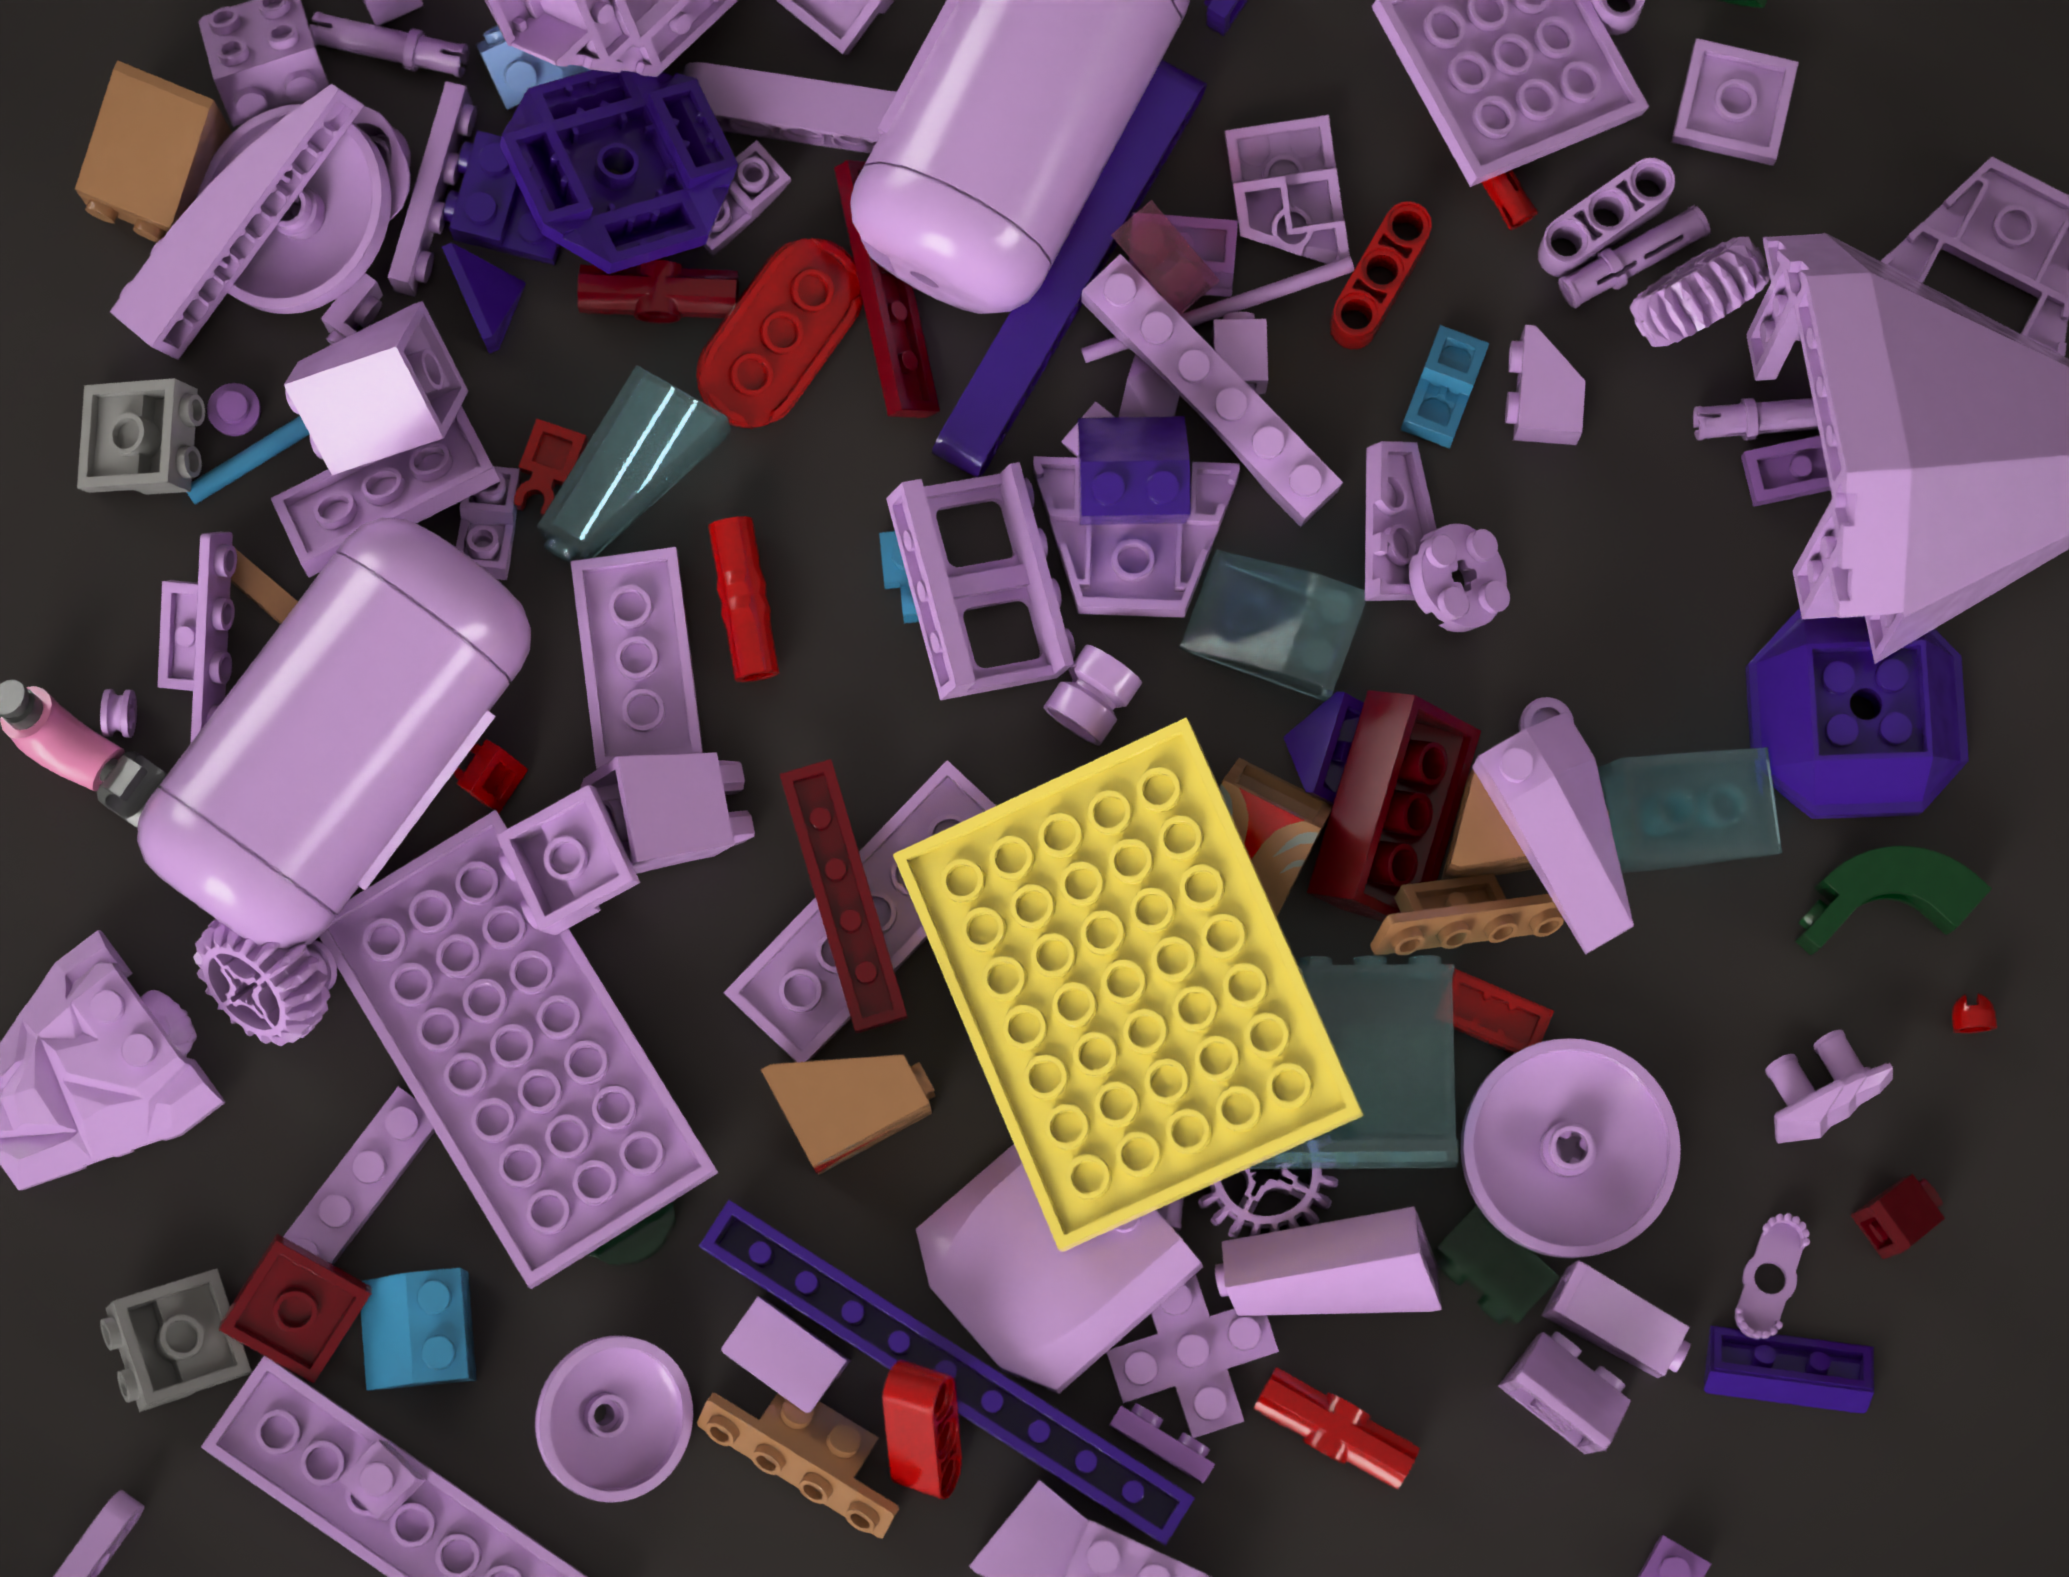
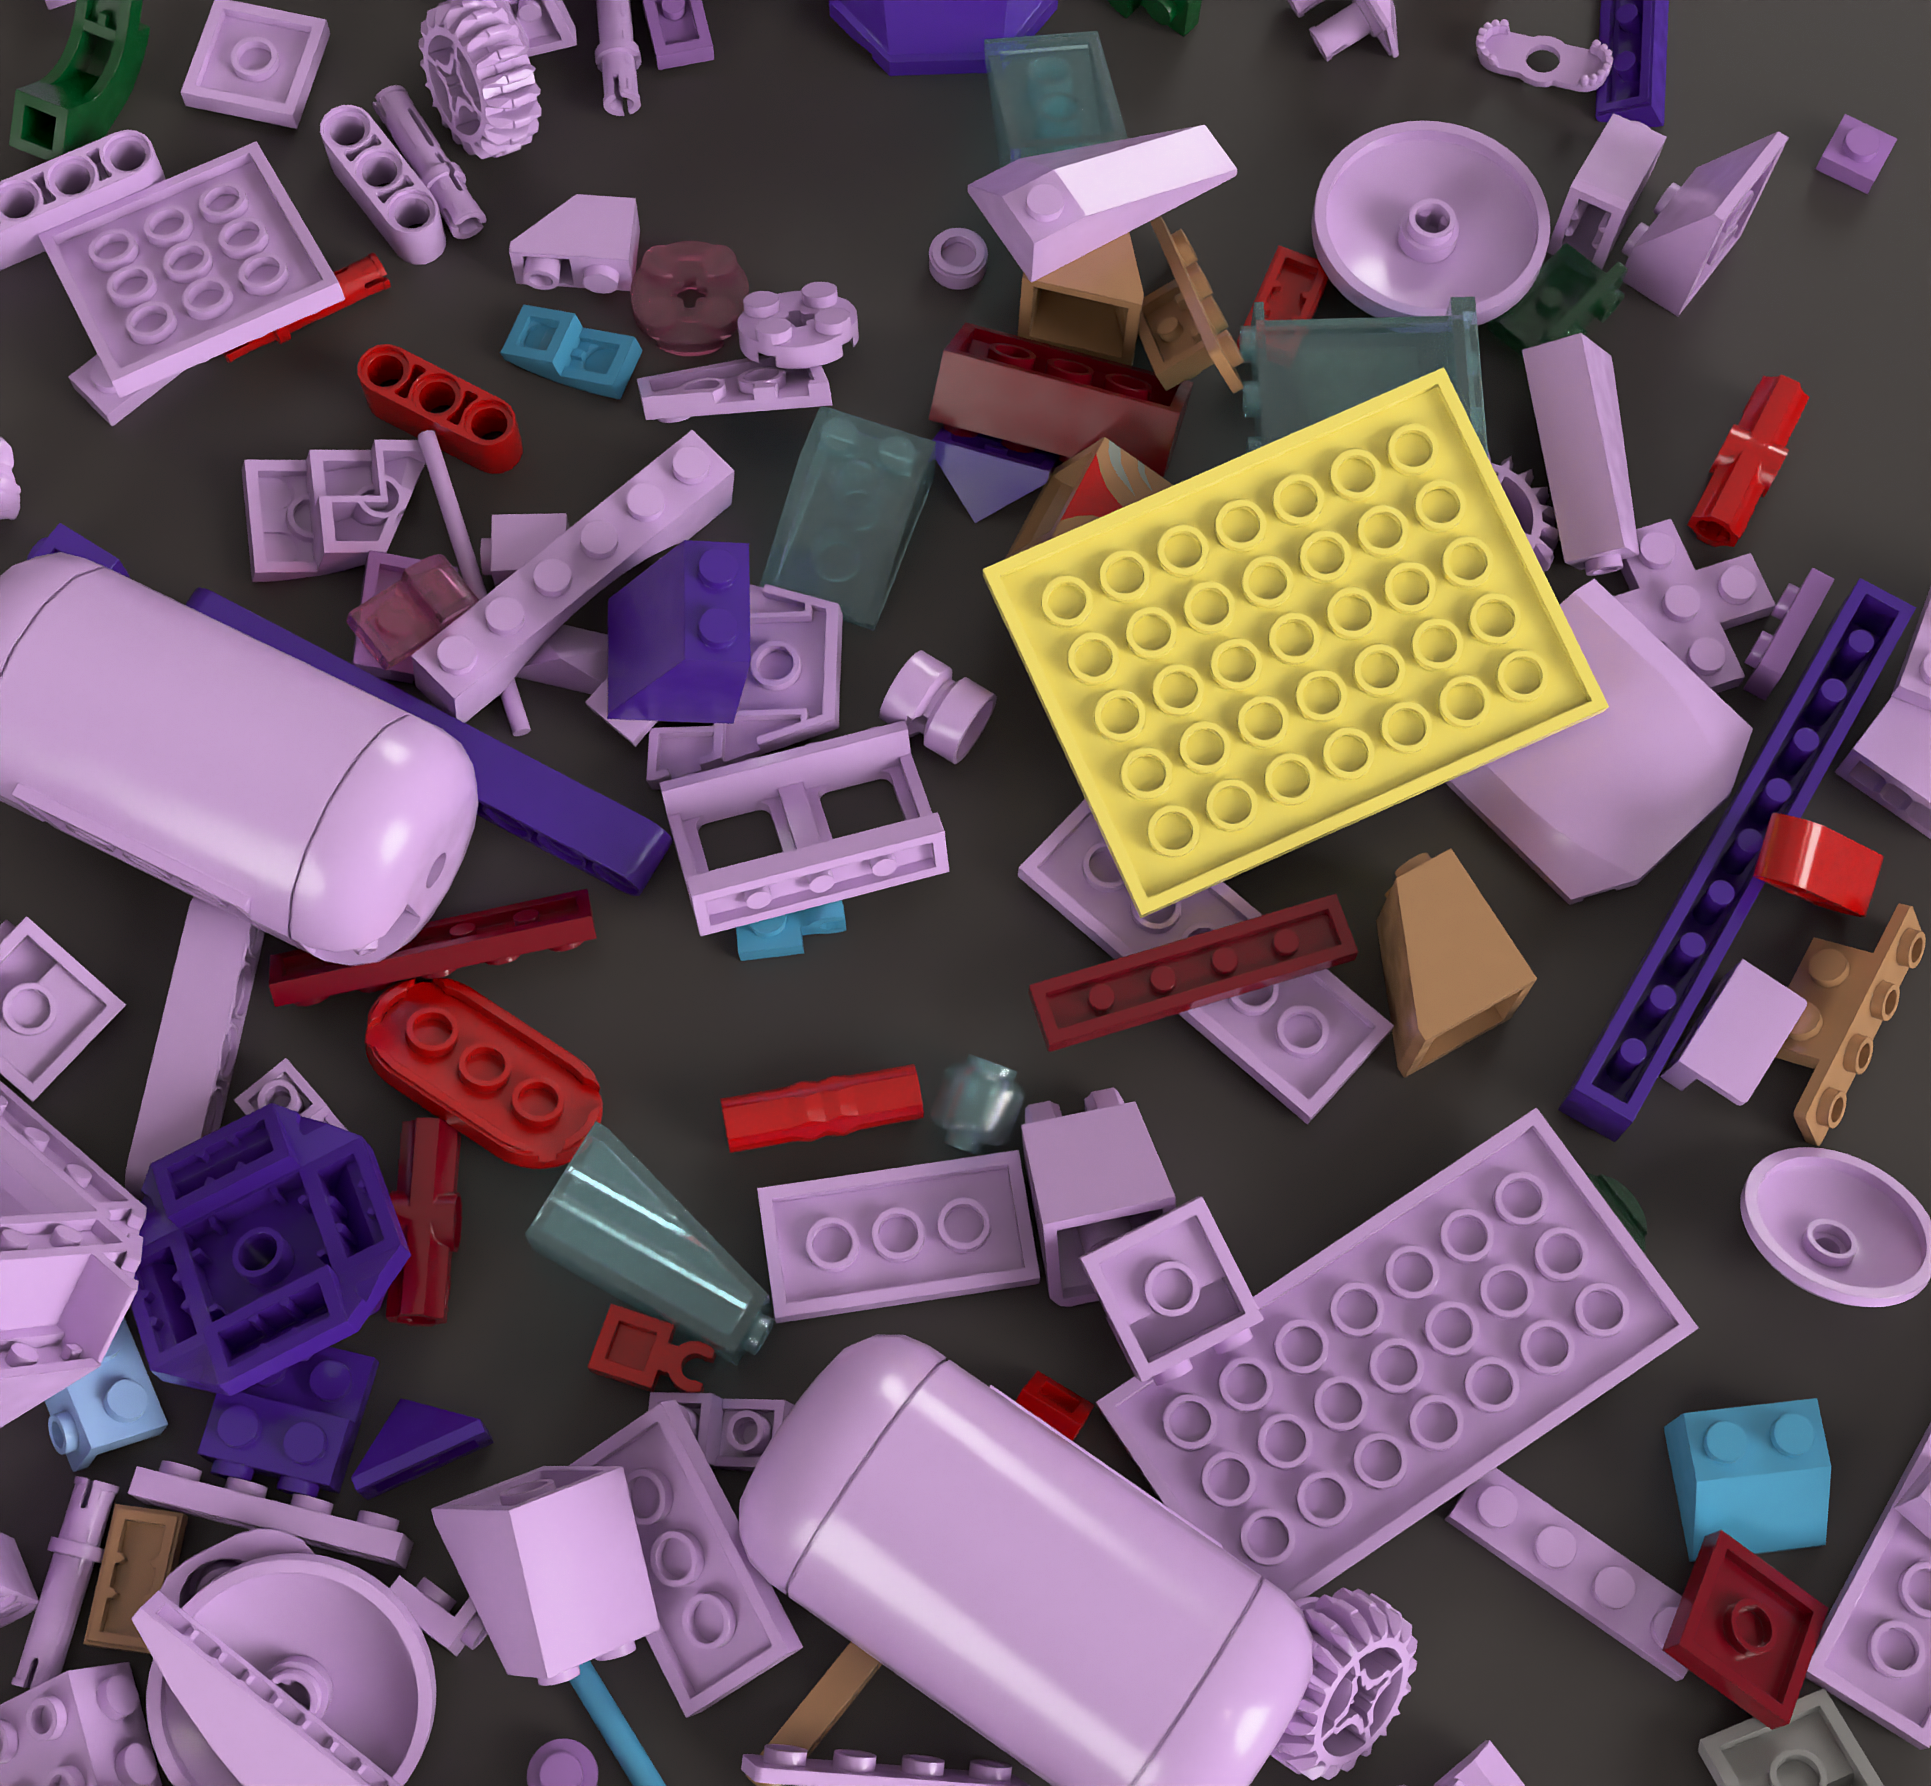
camera: 95 degrees left, 10 degrees down
(395, 92) = (137, 1559): none -> medium nougat plate
(743, 723) = (977, 1104): none -> clear light blue head
(1521, 464) = (683, 267): none -> clear pink plate

